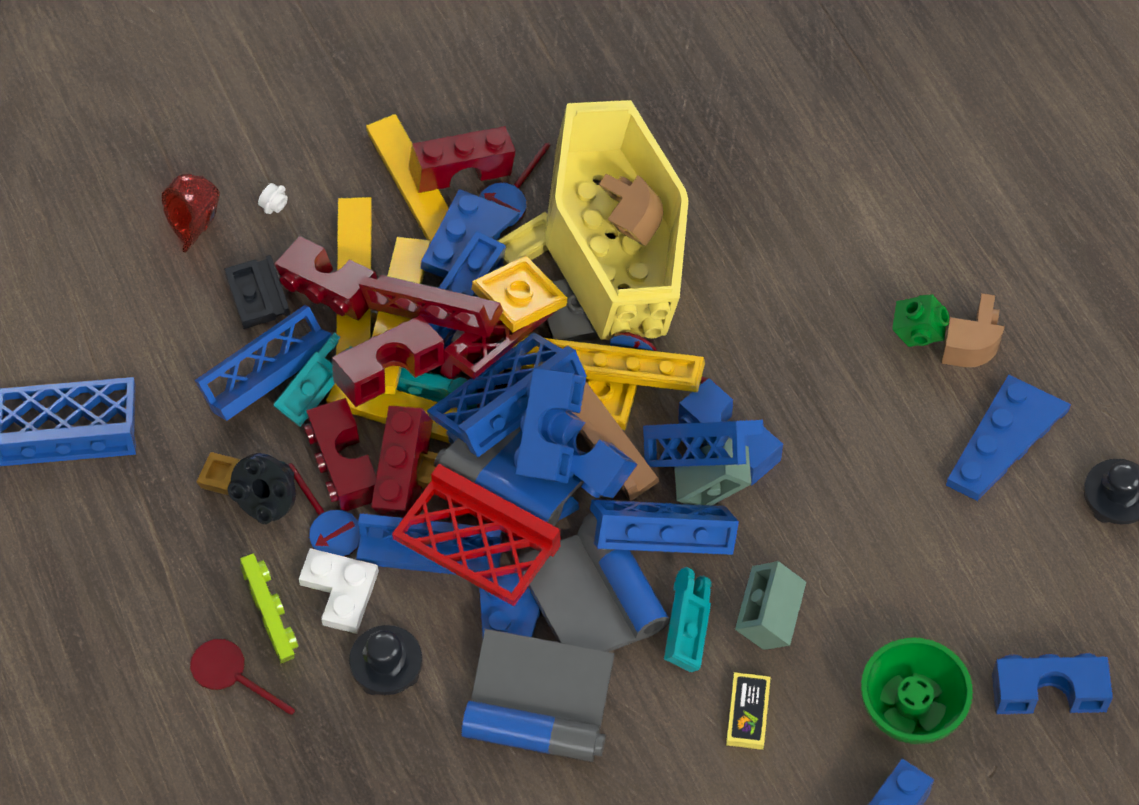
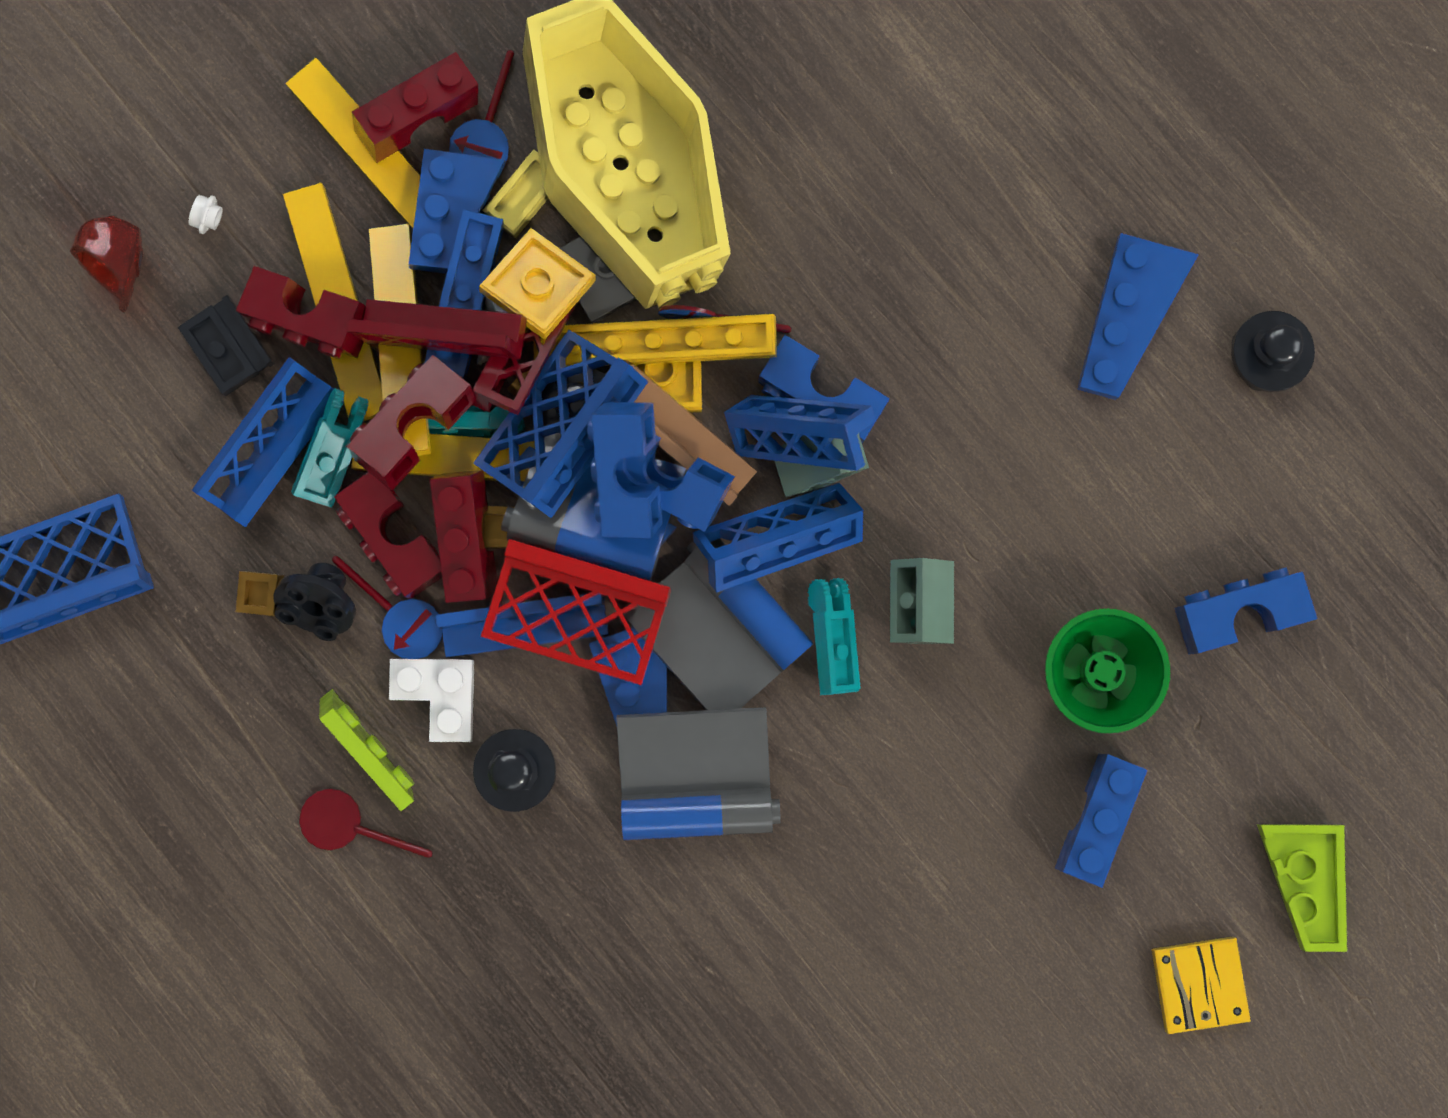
camera: 15 degrees left, 25 degrees up
(638, 207) = (650, 132): medium nougat brick -> none
(748, 711) = (924, 724): tile -> none
(920, 320) = (1009, 191): green brick -> none
(976, 341) = (1072, 202): medium nougat brick -> none

